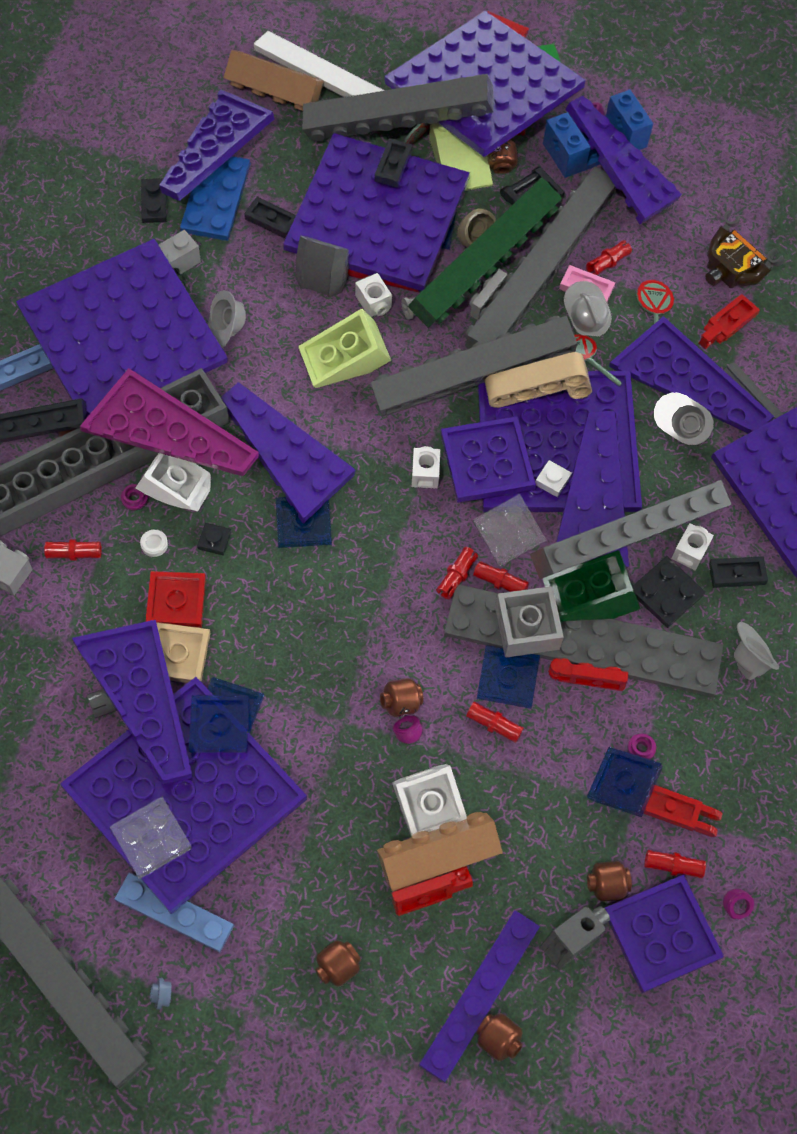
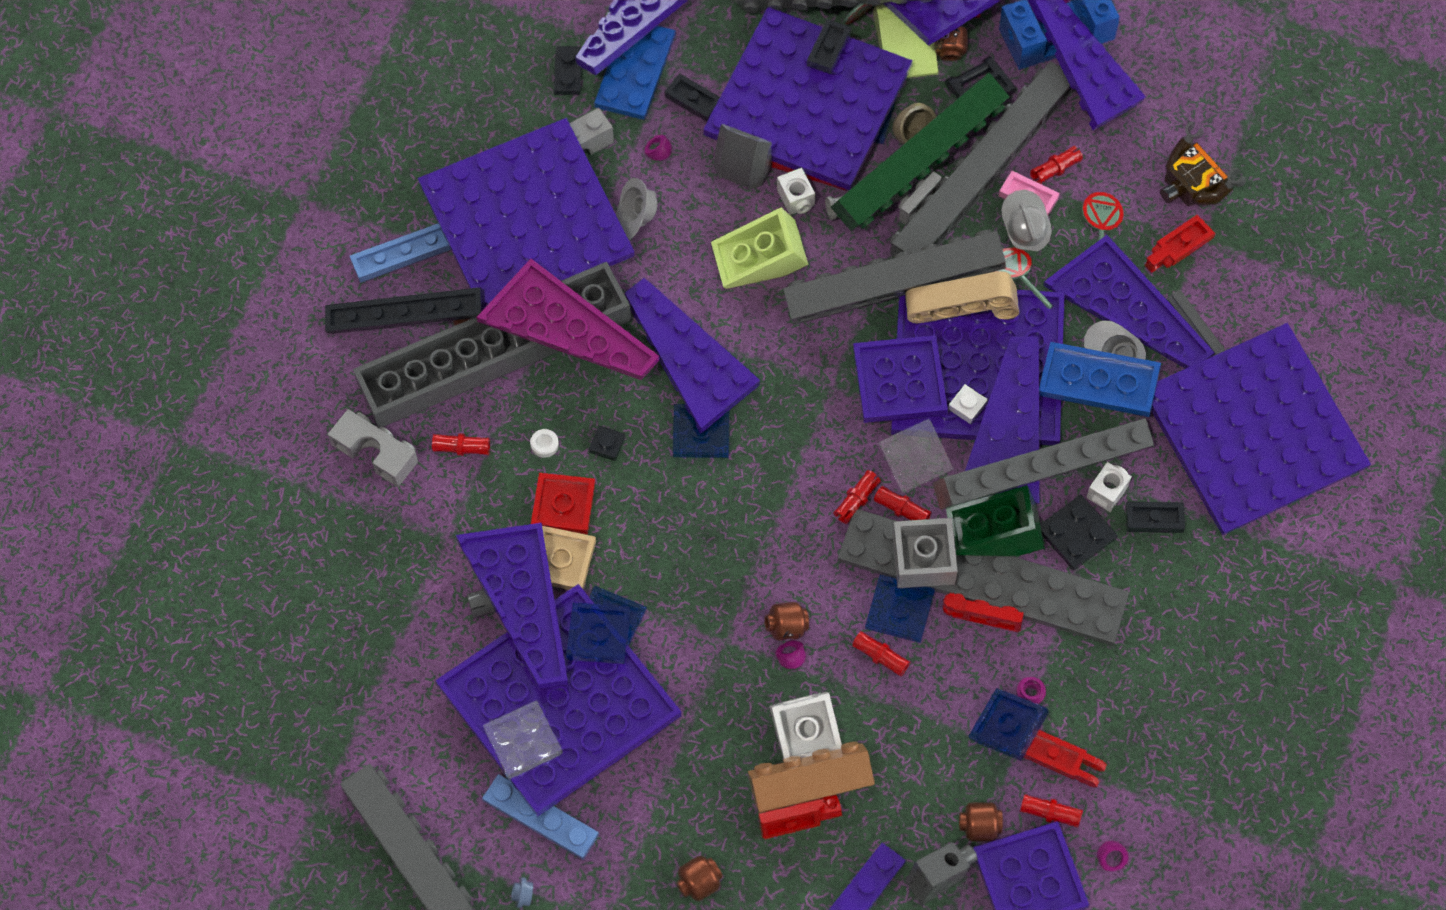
camera: 10 degrees right, 0 degrees up
(129, 491) = (523, 386): magenta plate -> none
(176, 482) = (571, 381): white slope -> none
(246, 267) = (662, 151): none -> magenta piece
(422, 476) = (834, 393): white brick -> none
(674, 447) = (1099, 379): none -> blue plate
(752, 653) = (1159, 602): light grey piece -> none

